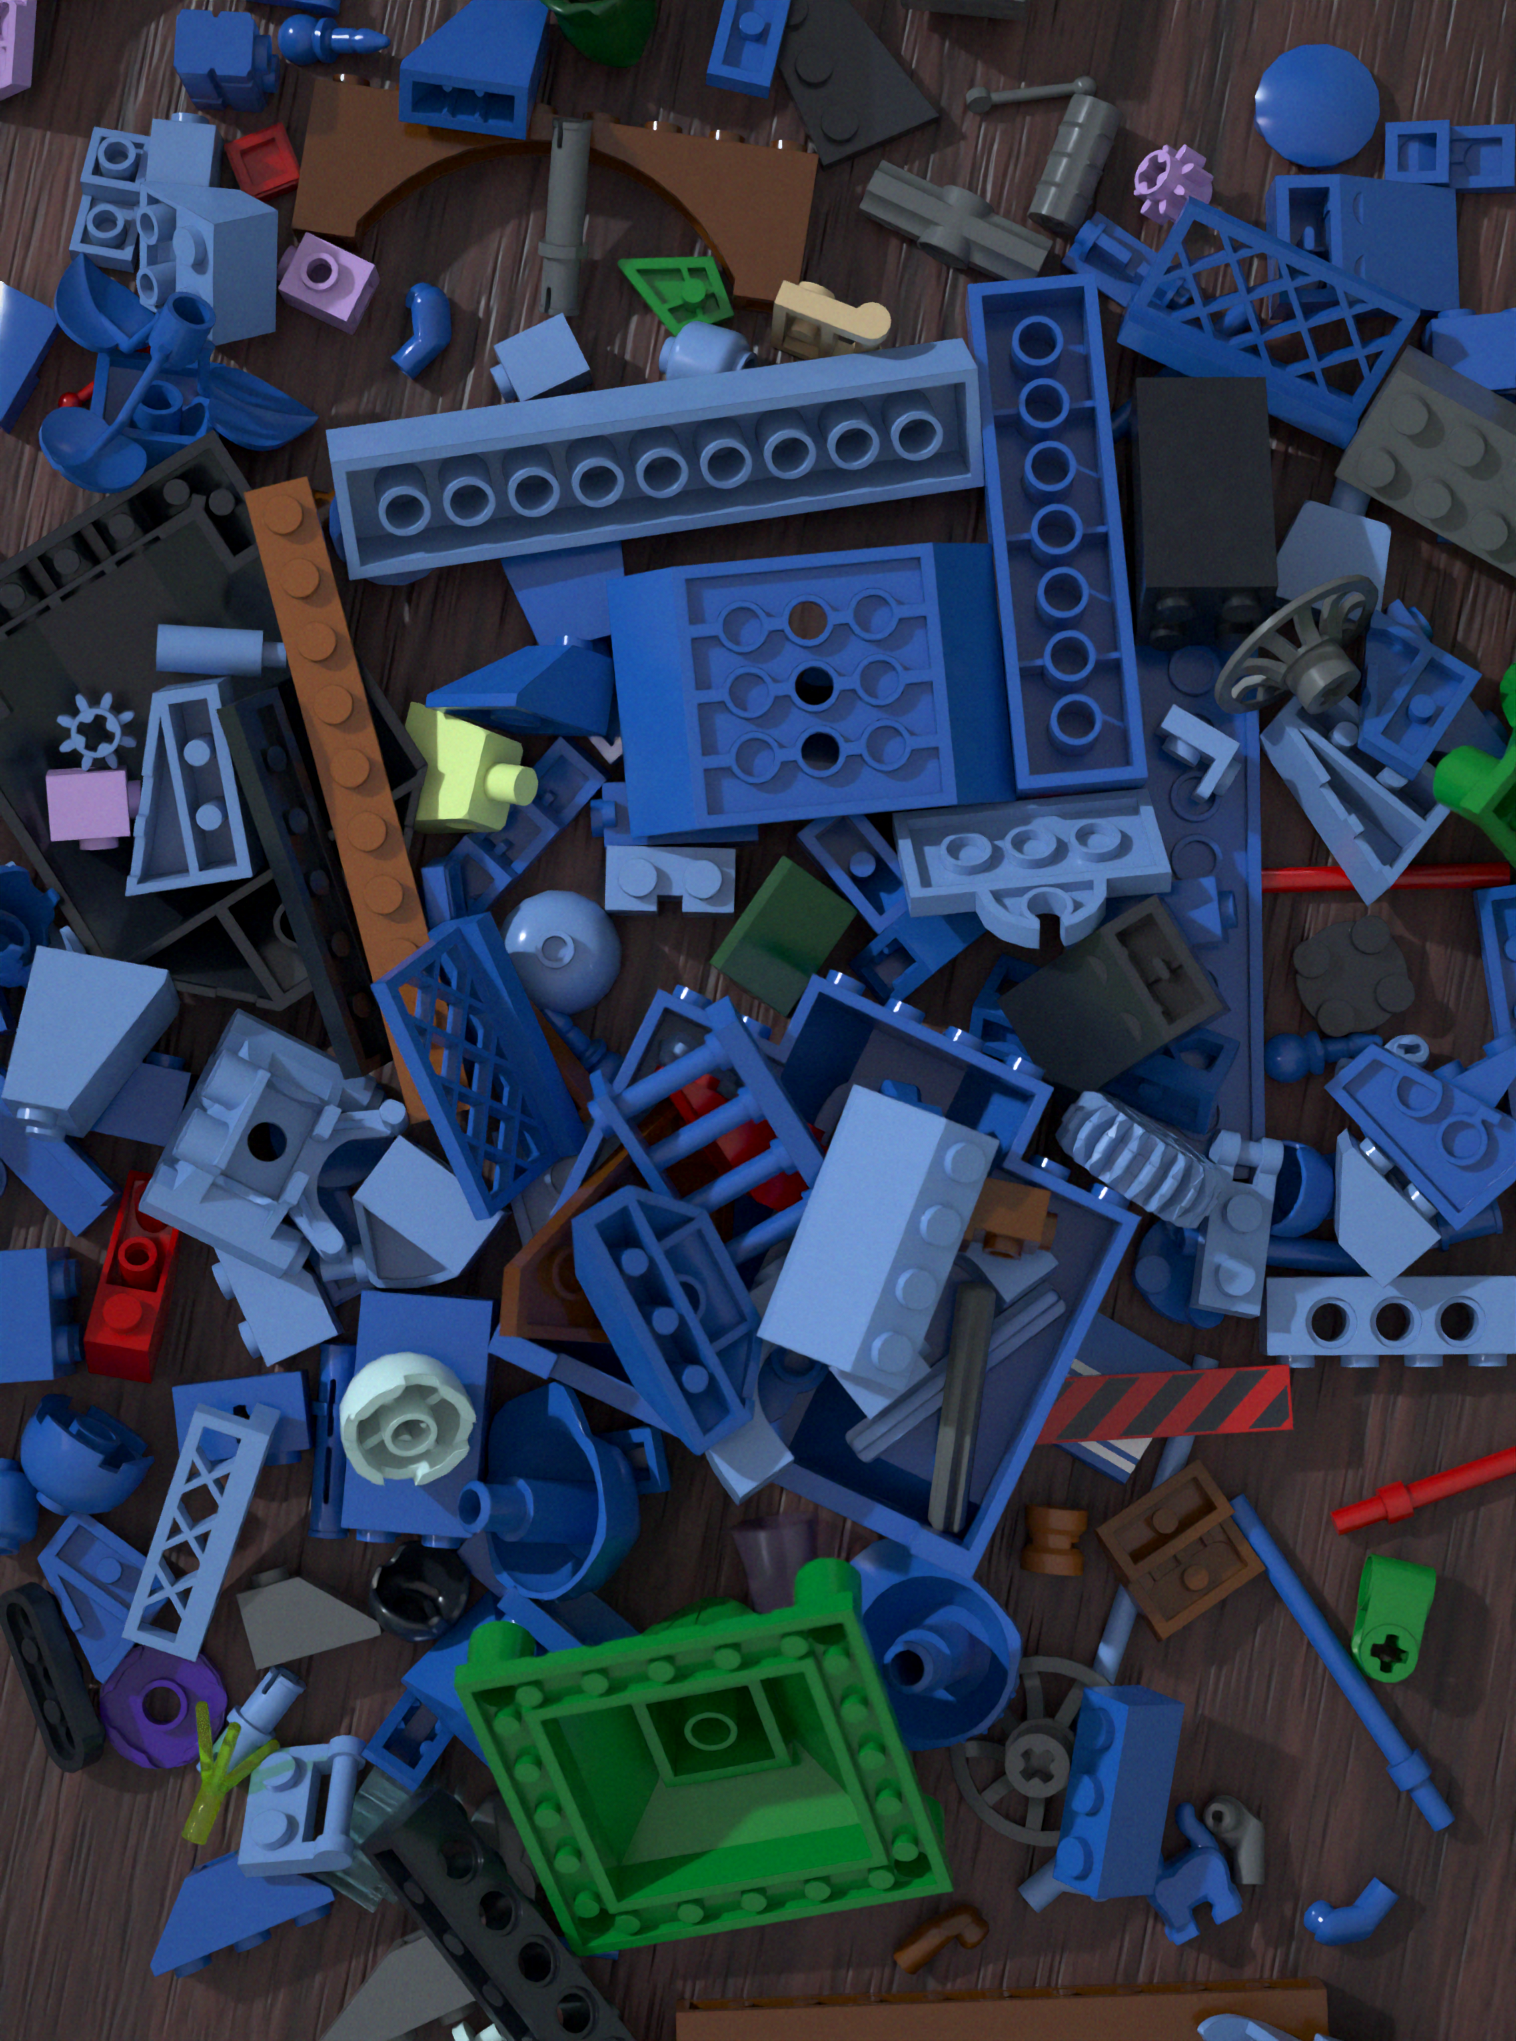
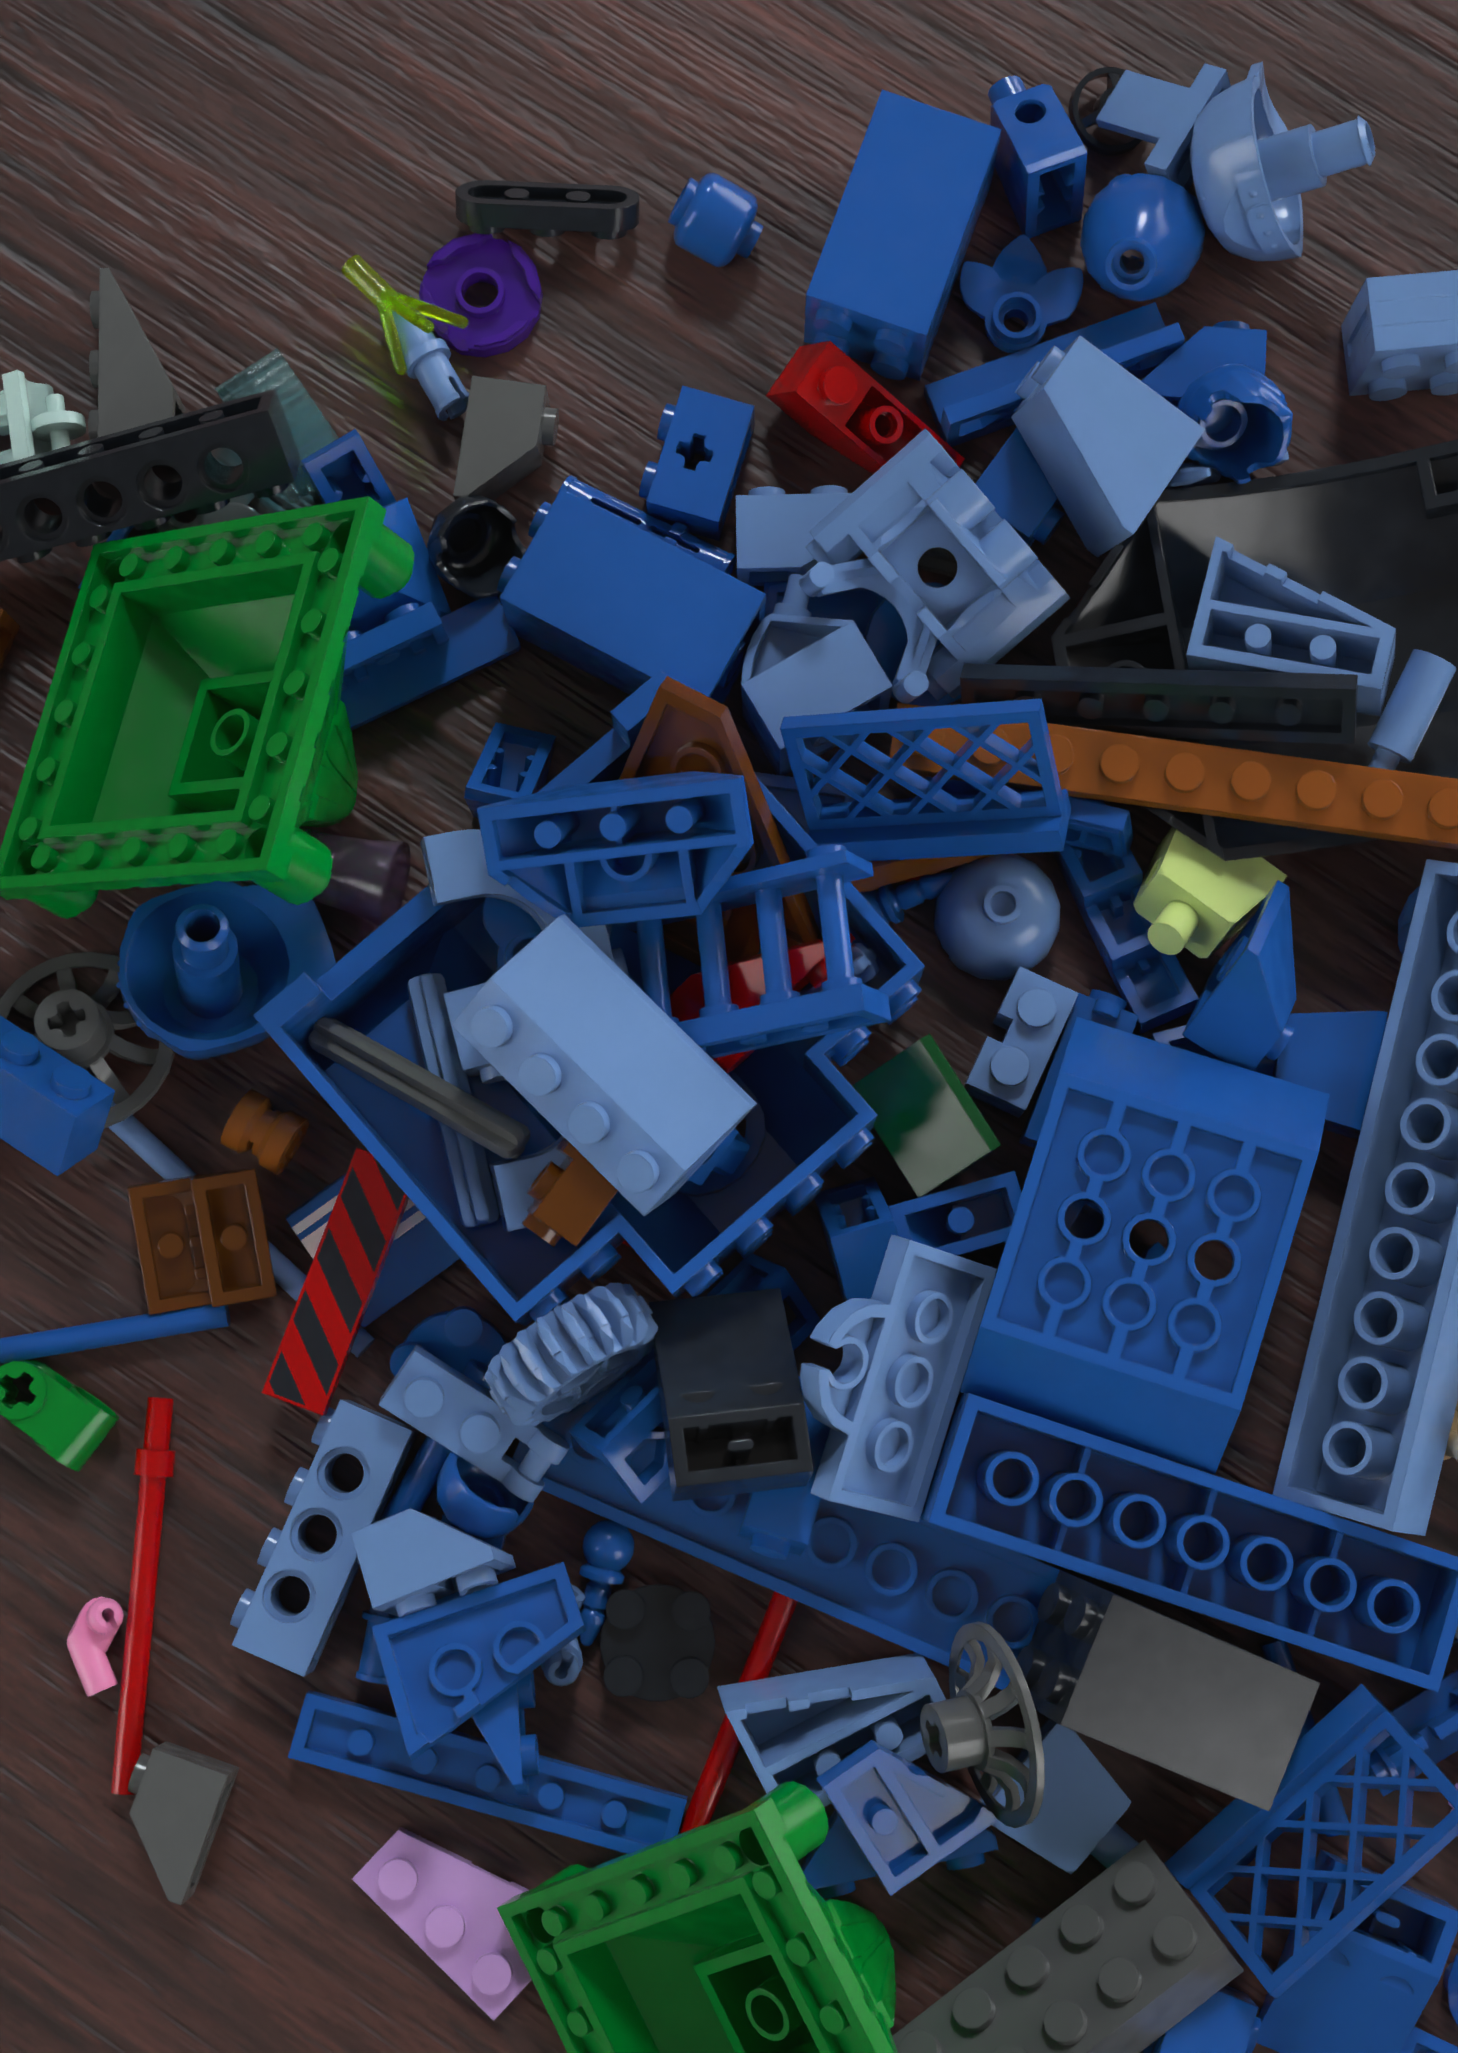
camera: 120 degrees right, 5 degrees down
(80, 737) = (1378, 557): medium blue gear -> none
(81, 1459) = (727, 306): blue cylinder -> none
(92, 805) = (1313, 541): lavender brick -> none
(96, 1584) = (603, 282): blue wing -> none
(225, 1529) = (608, 396): medium blue fence -> none
(226, 1908) = (279, 281): blue slope -> none
(284, 1809) = (339, 350): medium blue plate -> none
(405, 1419) = (631, 572): light aqua cylinder -> none
(555, 1499) = (500, 692): blue piece -> none
(1195, 740) = (945, 1586): medium blue bracket -> none

